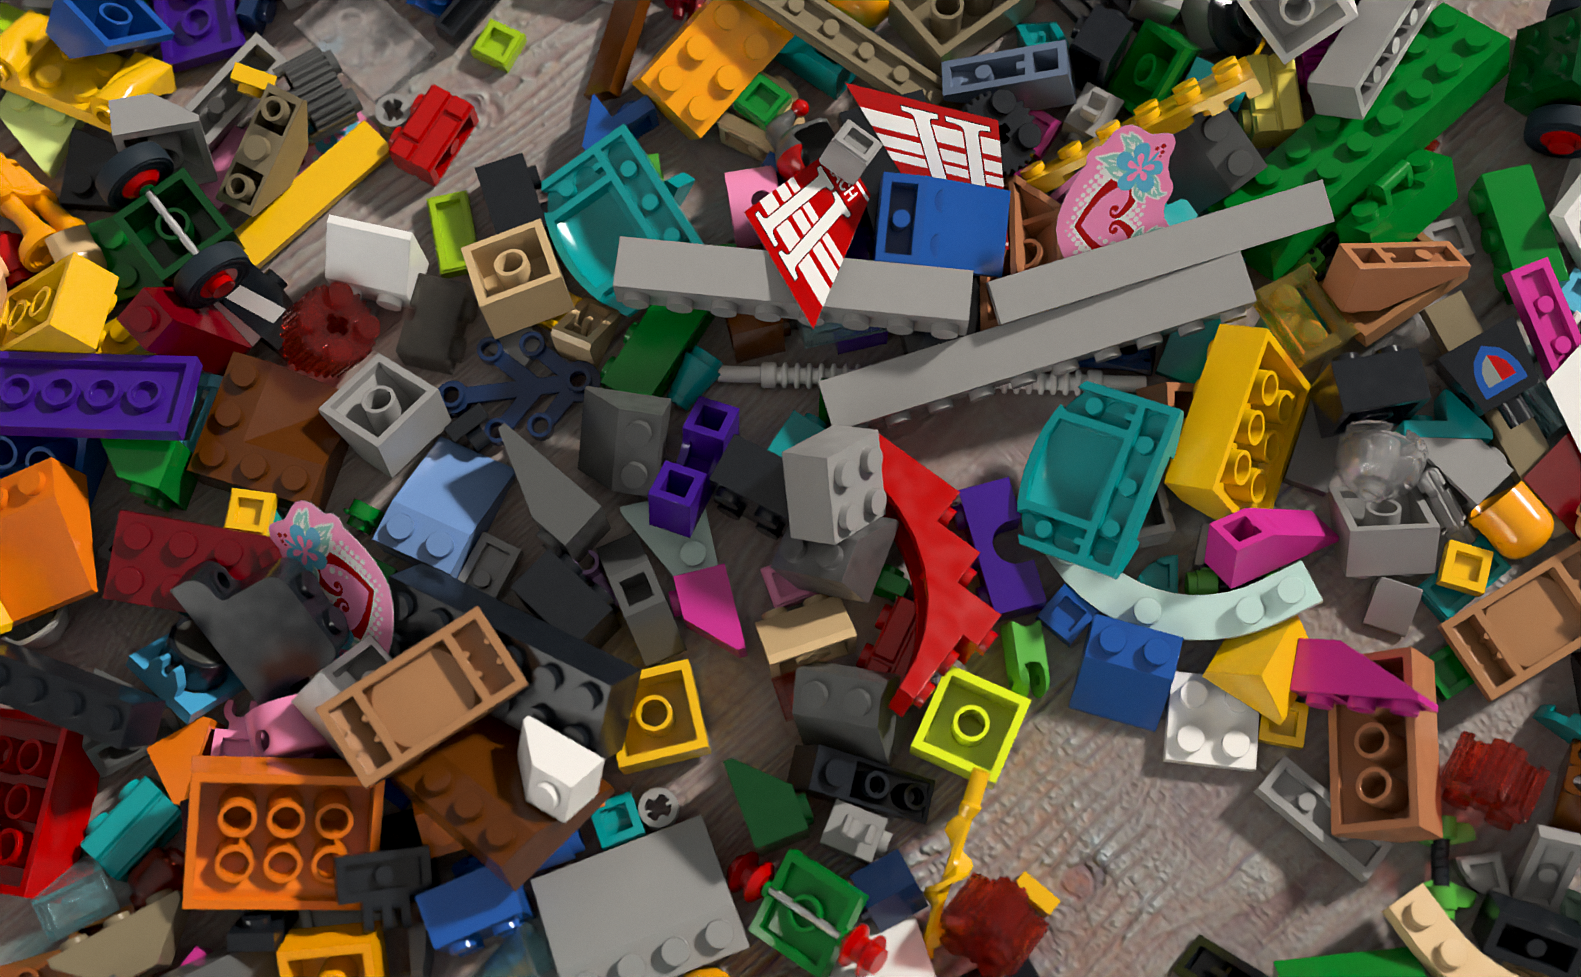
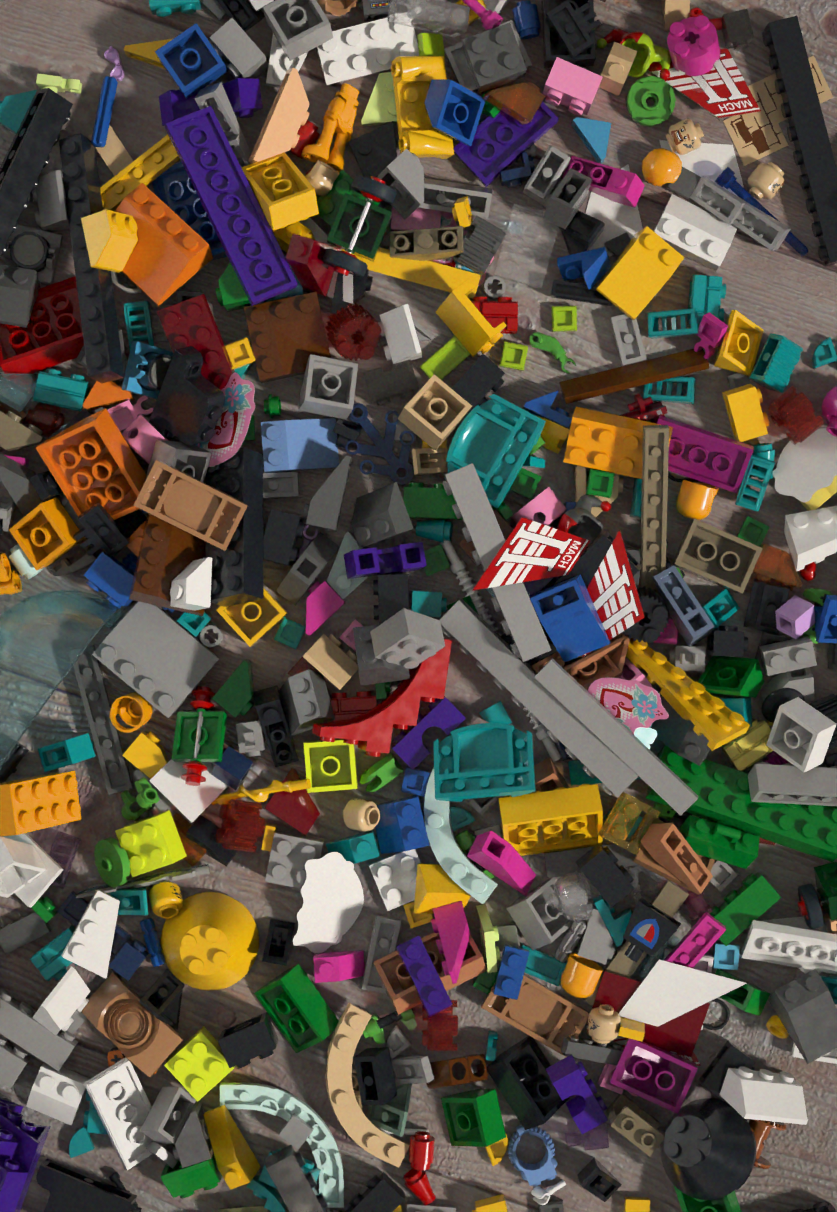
camera: 55 degrees right, 15 degrees up
(85, 643) = (135, 306): none -> teal slope
(415, 160) = (467, 321): none -> yellow panel
(508, 137) = (513, 356): none -> lime tile
(522, 81) = (551, 345): none -> bright green arm
(656, 137) = (553, 435): none -> yellow brick
(704, 212) = (525, 483): none -> green plate
(725, 682) = (290, 633): none -> teal tile
(744, 396) = (435, 560): none -> green plate
(850, 152) = (584, 552): light grey slope -> none
(1006, 826) = (295, 807): none -> dark red slope
(1022, 437) = (496, 714): none -> teal tile
(1076, 723) = (361, 815): none -> tan head
(1097, 872) = (289, 857): none -> light grey brick
(1126, 768) = (356, 847): none -> teal slope
(1198, 851) = (330, 902): none -> white sticker
(1308, 900) = (338, 966): none -> dark pink slope
(1381, 629) = (488, 936): none -> yellowish green wing
(1432, 750) = (424, 976): none -> dark purple arch
(1456, 621) = (511, 972): none -> blue plate
(1464, 568) = (543, 963): yellow tile -> none
(1484, 295) = (696, 905): none -> clear pink brick

